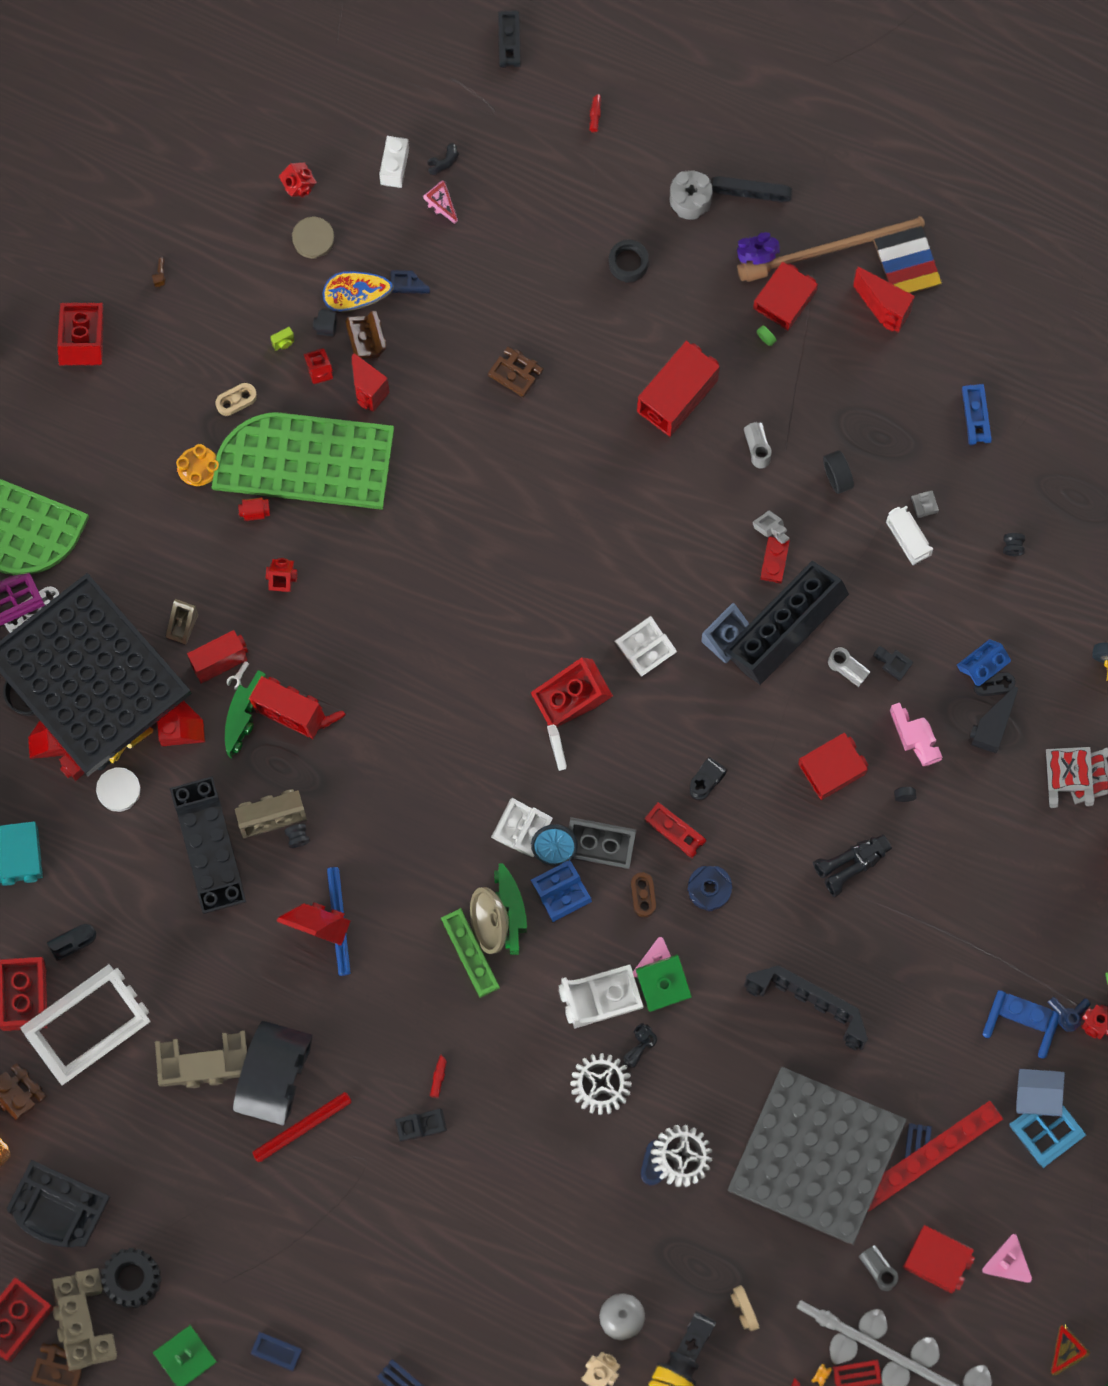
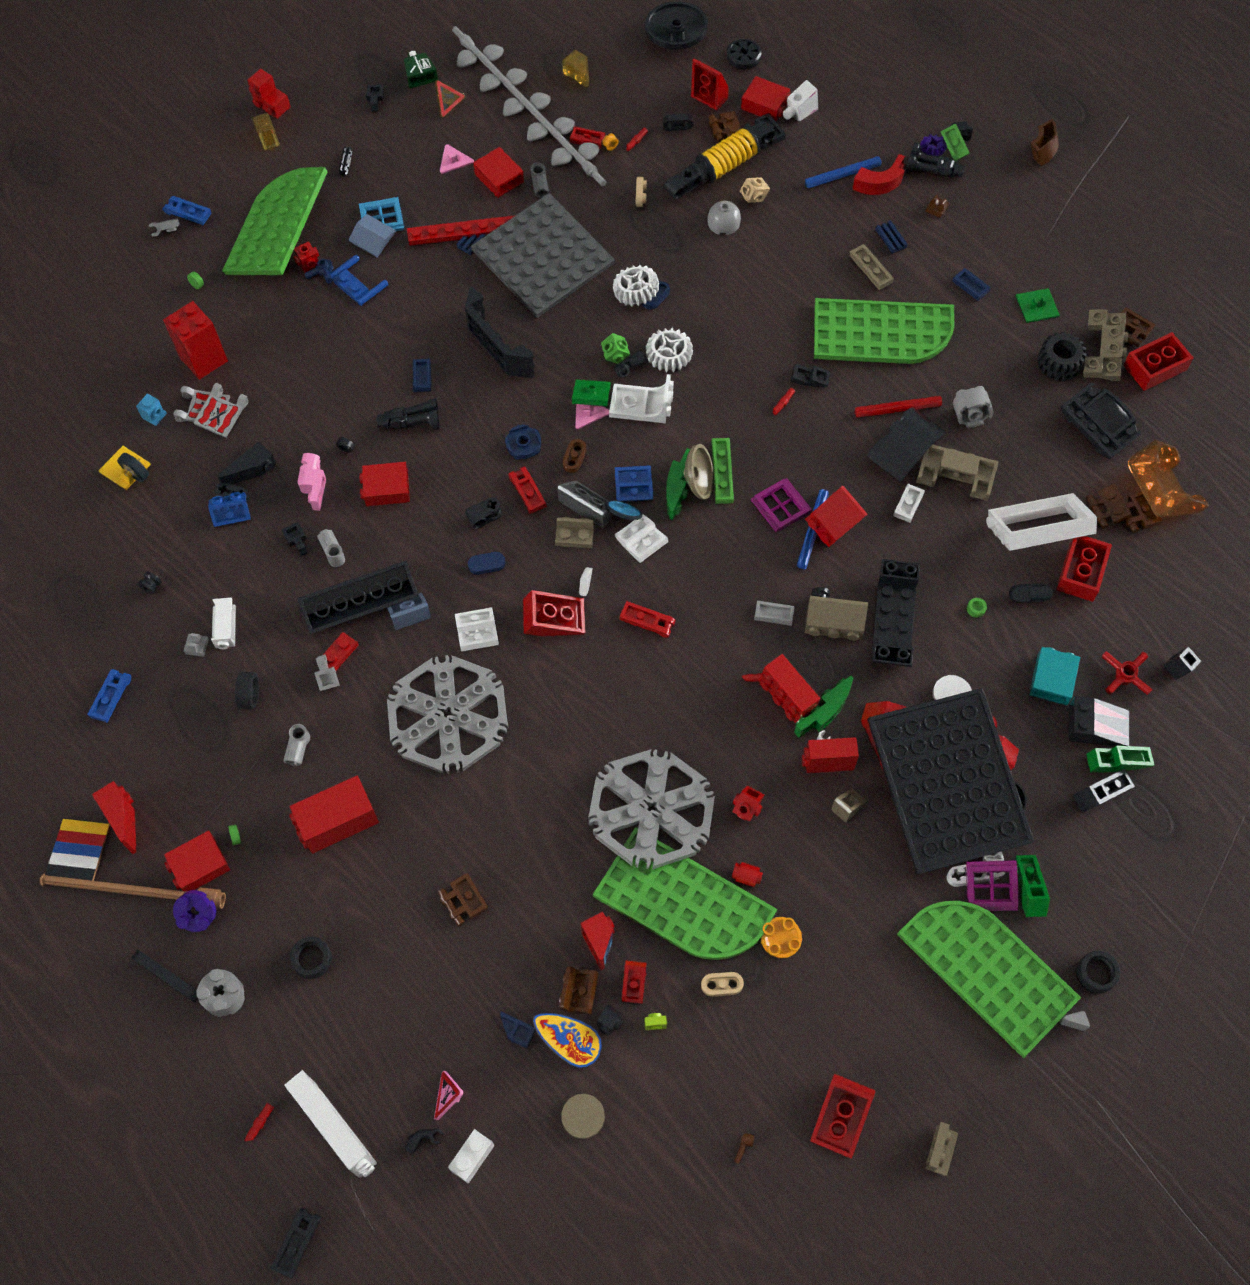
camera: 155 degrees left, 10 degrees down
(125, 903) = (976, 607): none -> bright green tile
(212, 1152) = (972, 406): none -> light grey brick
(243, 998) = (909, 503): none -> white plate
(297, 179) = (571, 1179): red brick -> none
(340, 802) = (774, 613): none -> light grey tile
(361, 546) = (650, 821): none -> light grey plate
(361, 1227) = (880, 330): none -> bright green plate
(397, 921) = (768, 513): none -> magenta piece
(408, 1319) = (871, 267): none -> dark tan plate
(471, 733) = (647, 619): none -> red plate
(529, 115) = (331, 1125): none -> white door
(597, 800) = (574, 532): none -> dark tan bracket
(638, 555) = (449, 726): none -> light grey plate
(663, 1053) = (615, 348): none -> bright green brick
(674, 725) = (486, 563): none -> dark blue tile
(872, 926) = (421, 375): none -> dark blue tile

